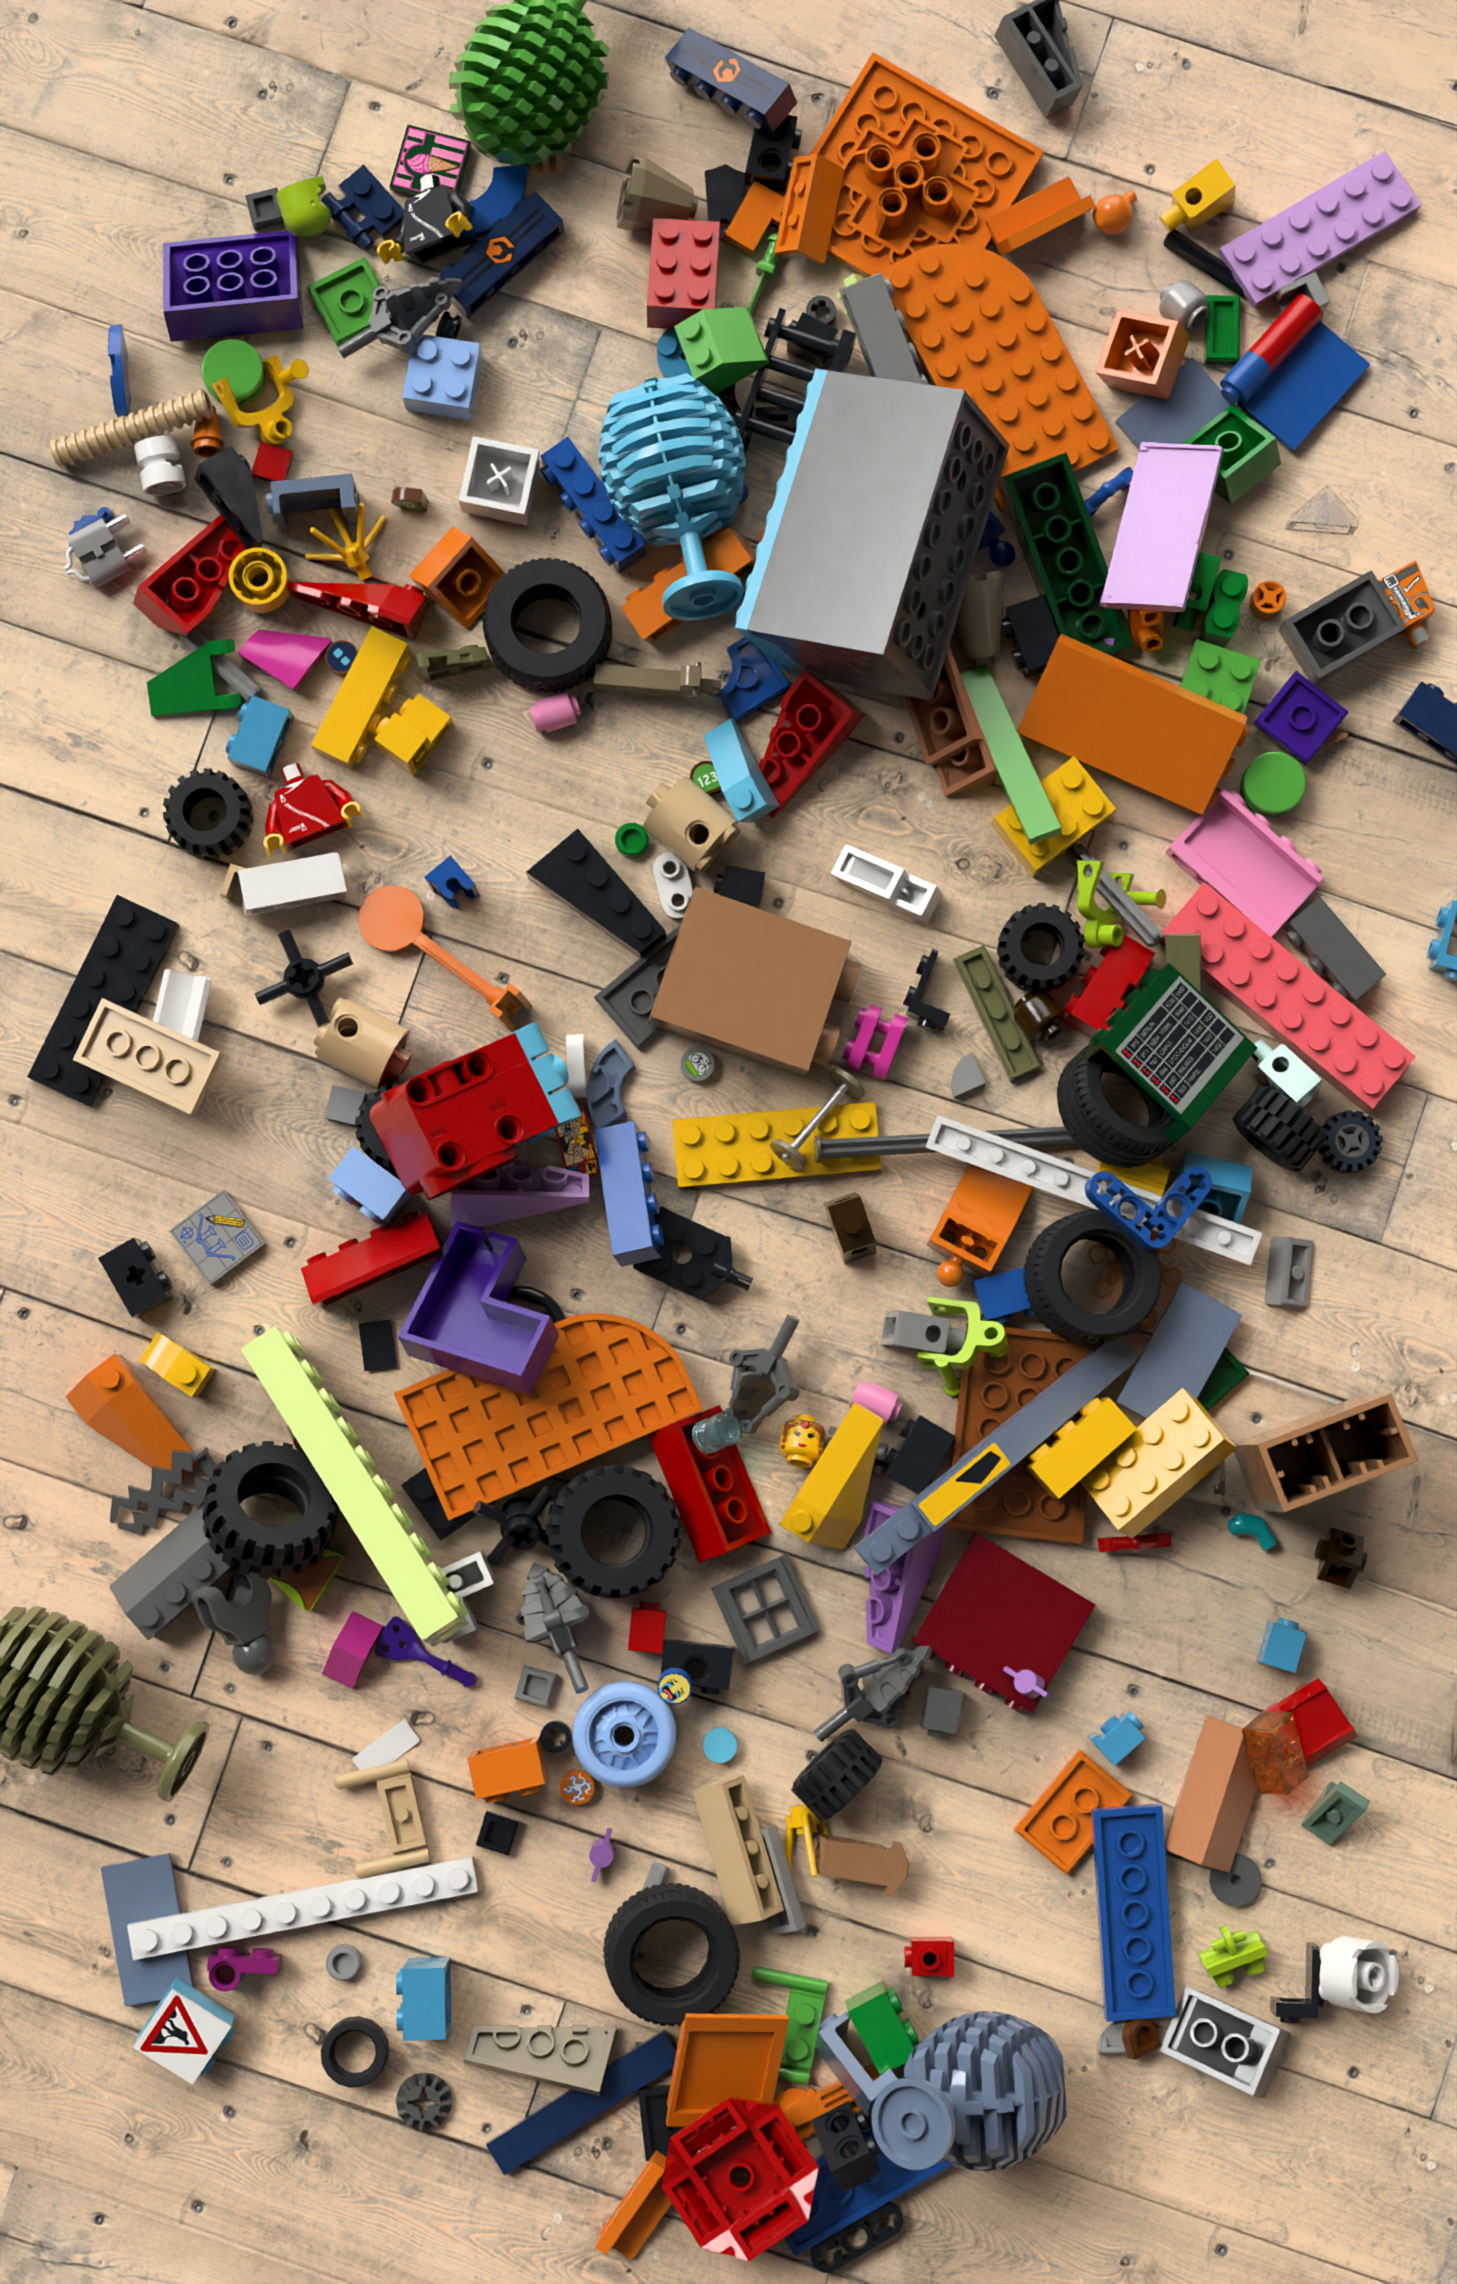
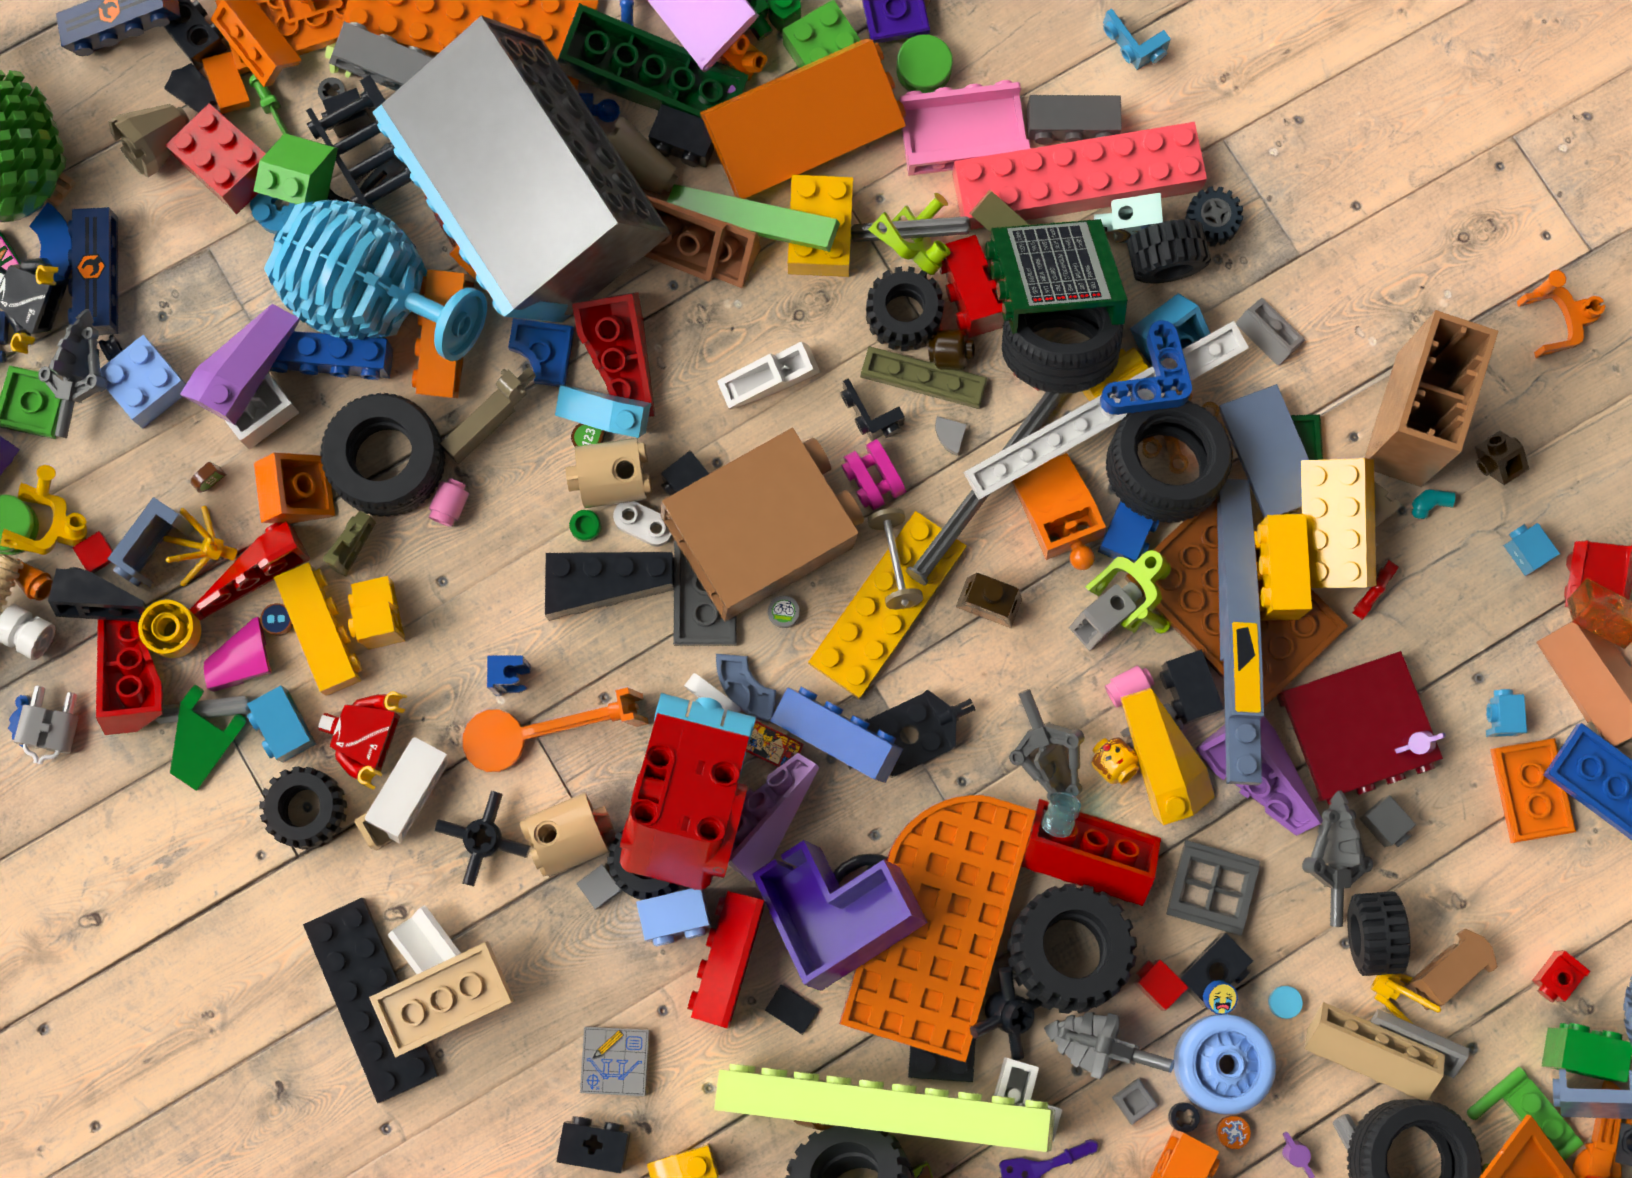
camera: 50 degrees left, 5 degrees down
(512, 445) = (237, 369): none -> medium lavender wedge

